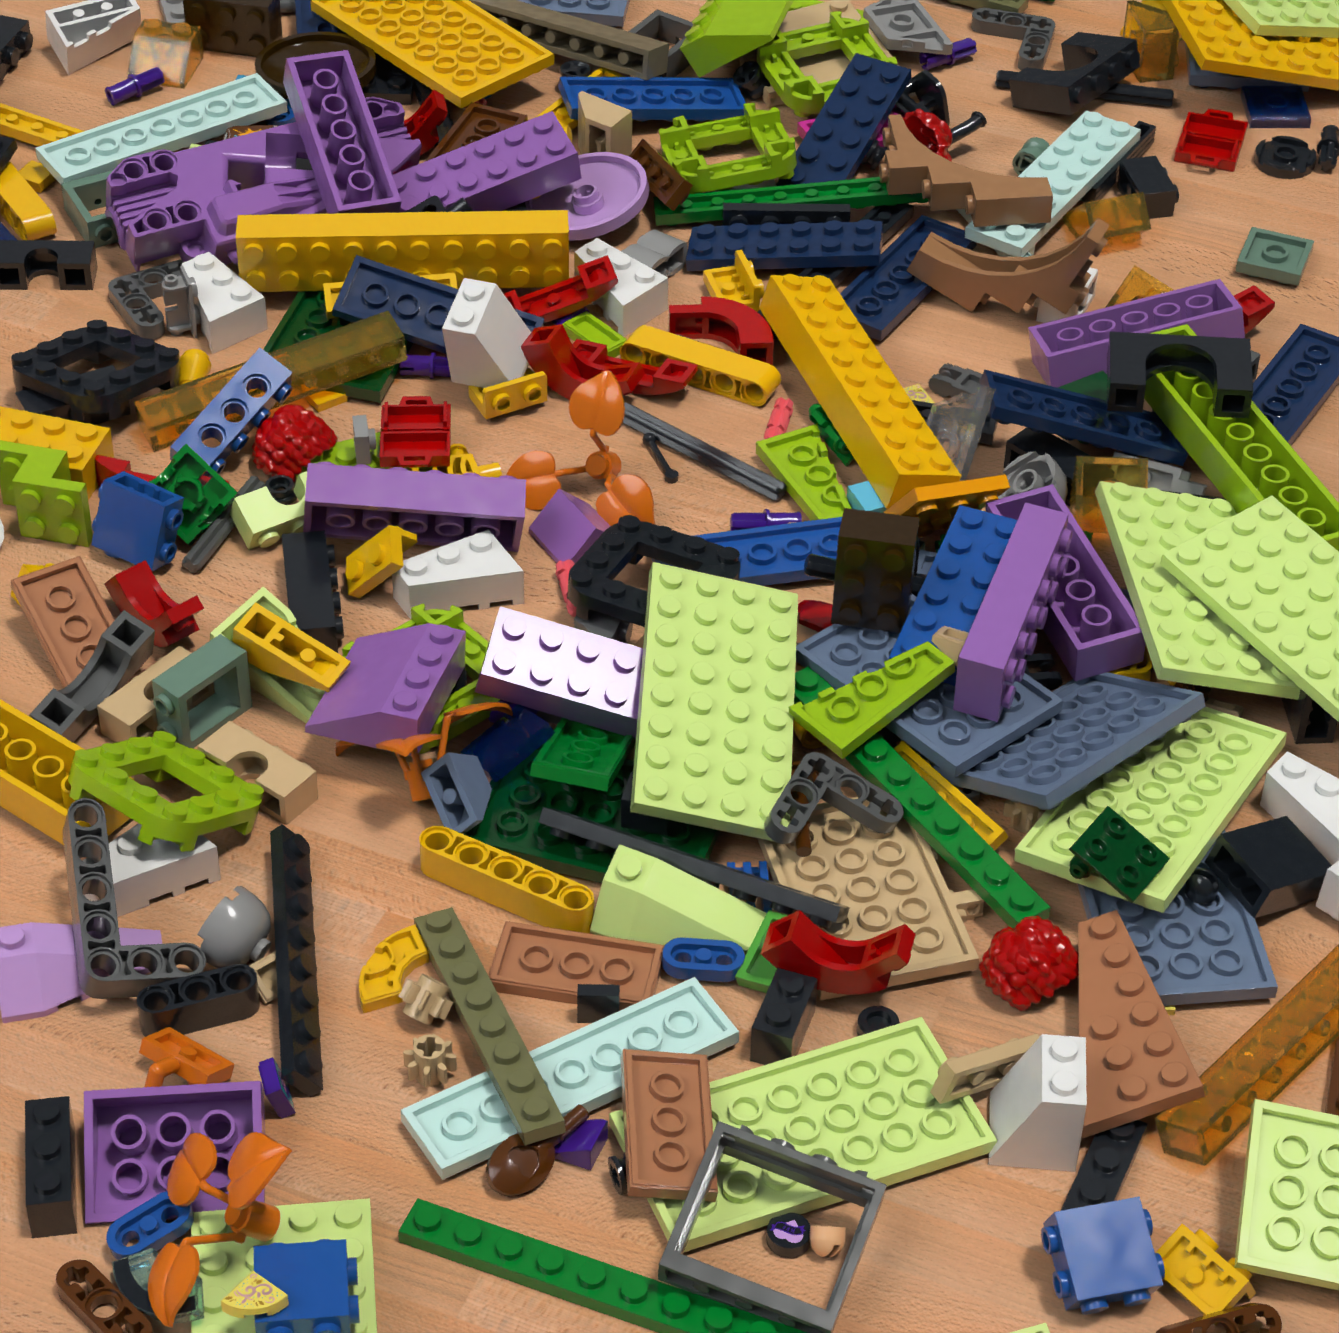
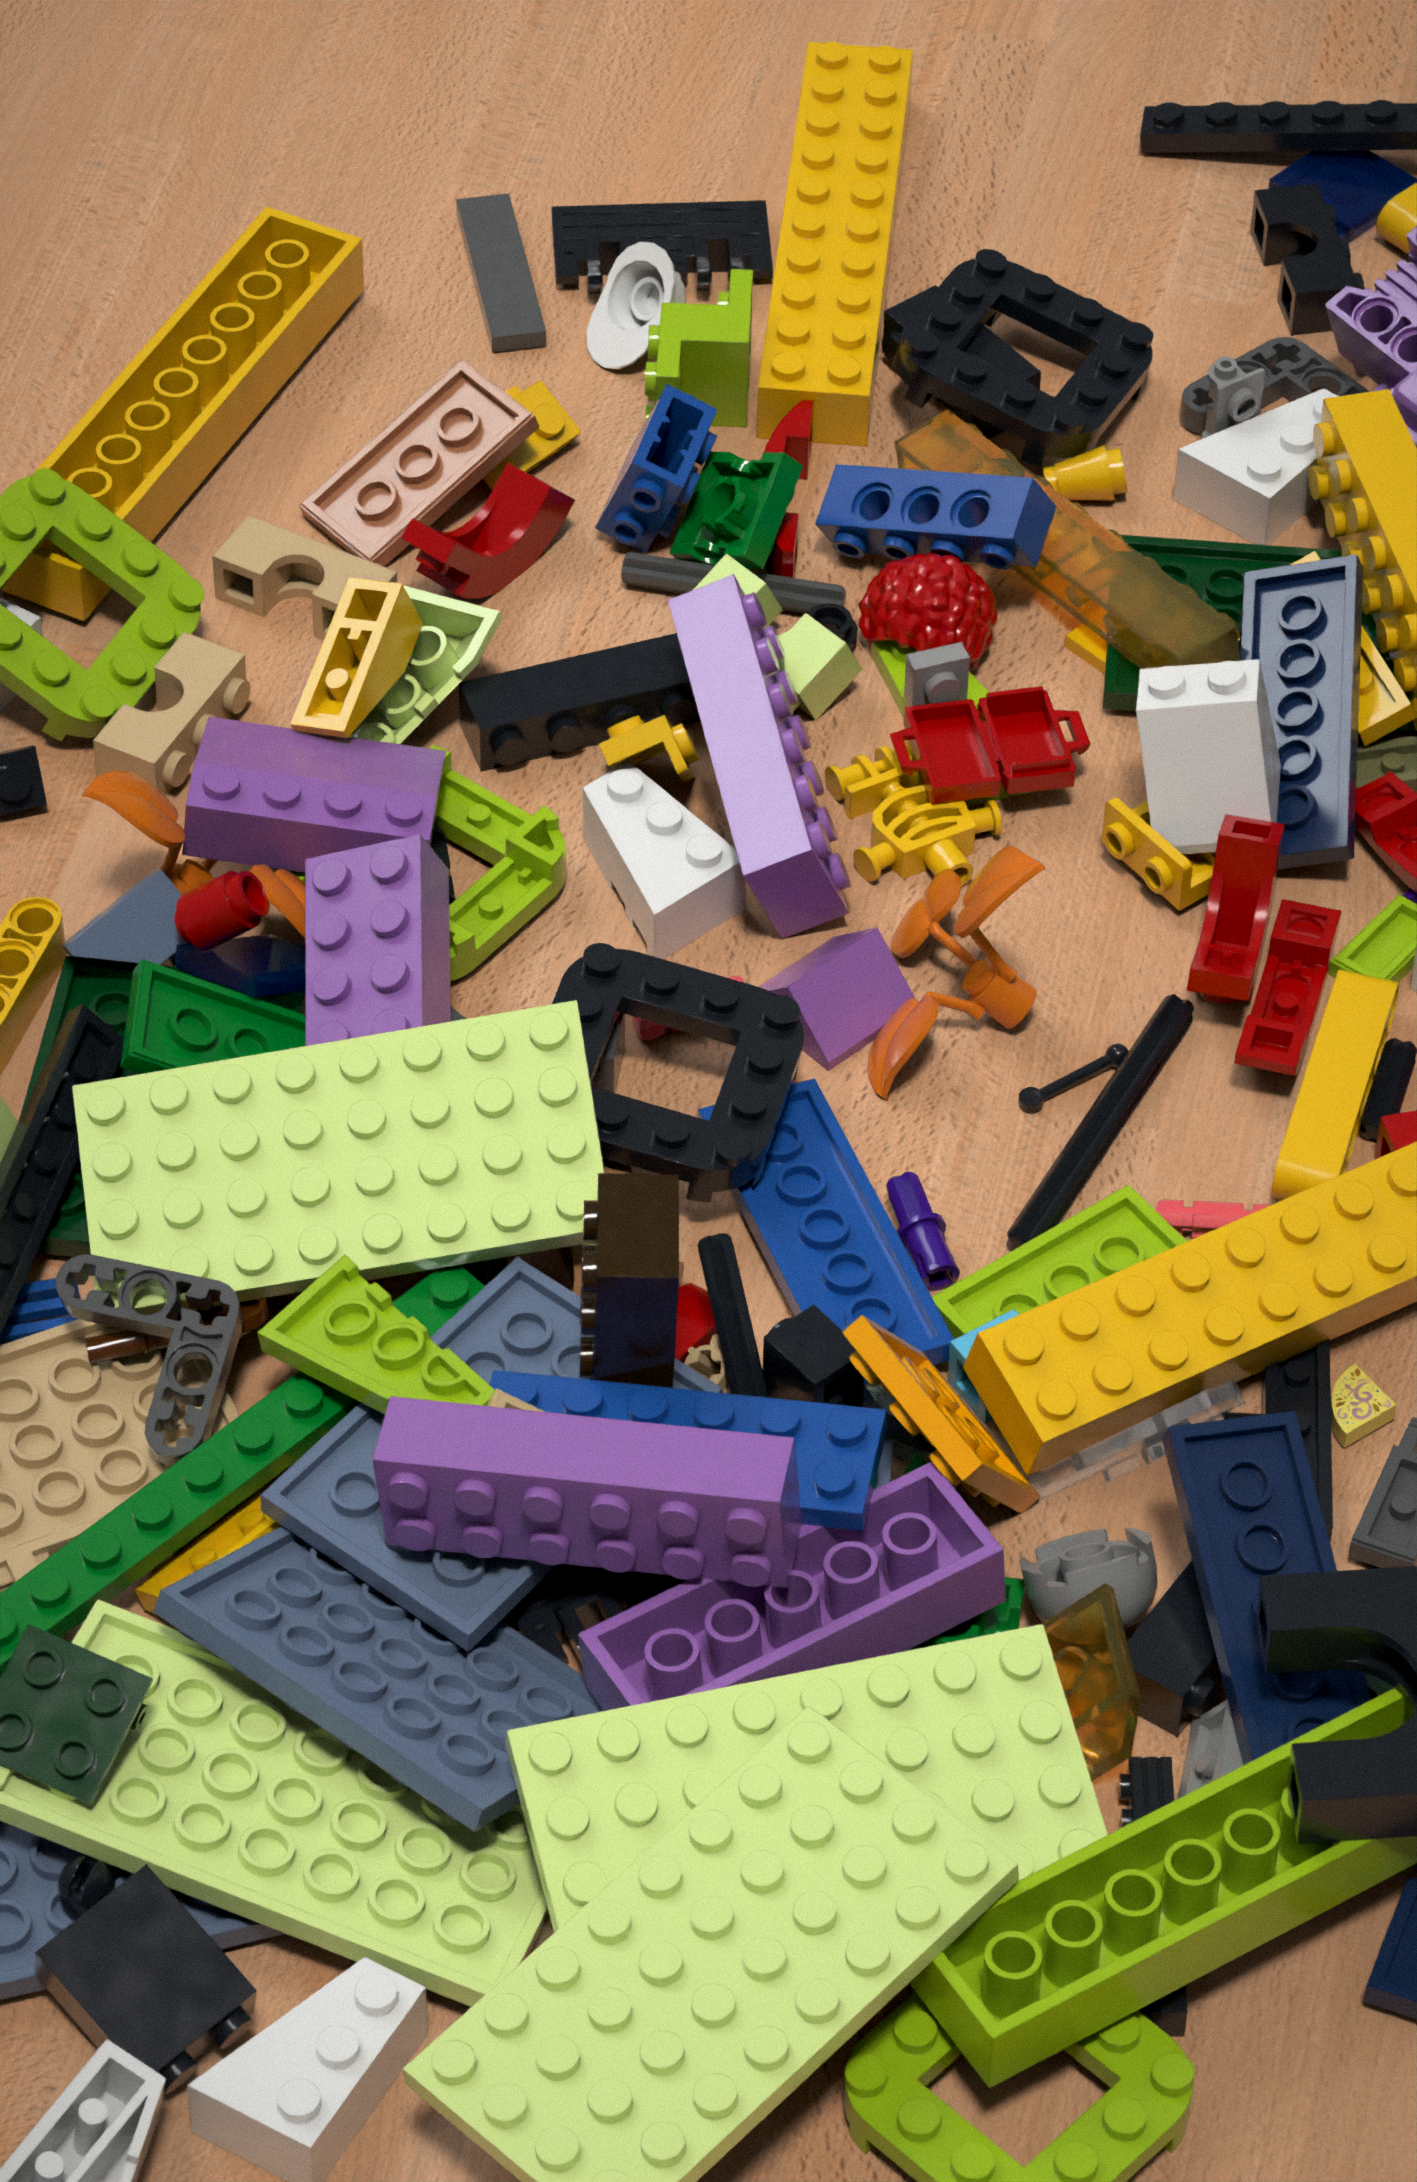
camera: 80 degrees right, 5 degrees up
(114, 662) = (352, 512): dark grey arch -> none
(215, 662) = (289, 576): sand green window -> none
(488, 731) = (221, 909): none -> red brick

